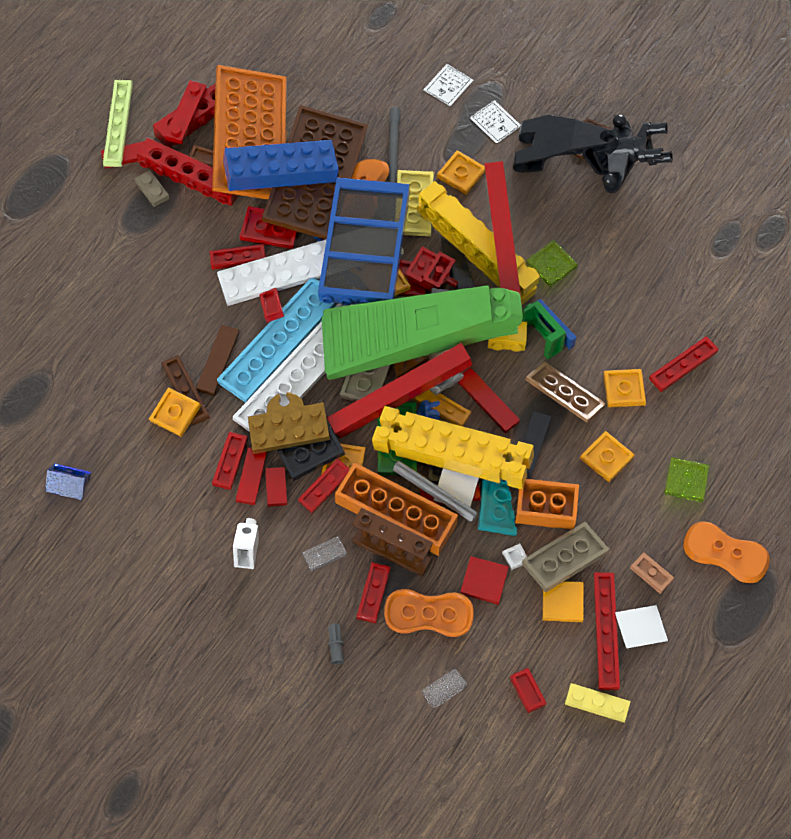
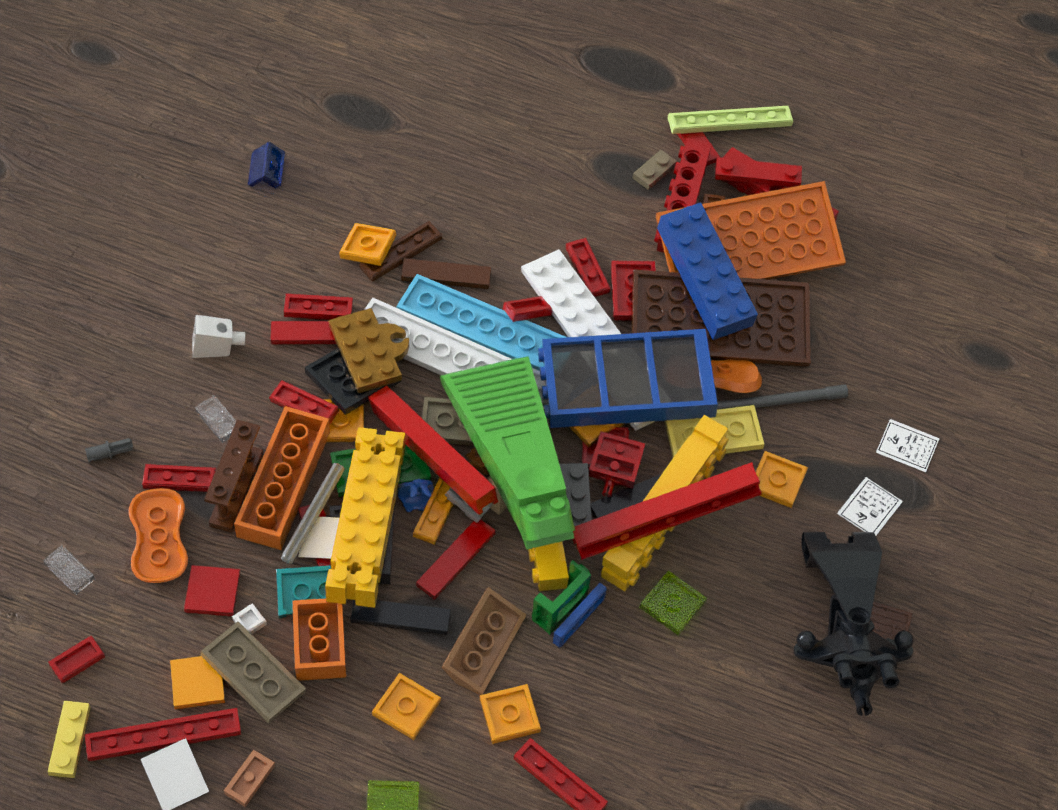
camera: 75 degrees right, 5 degrees down
(276, 486) = (294, 358): red tile -> none

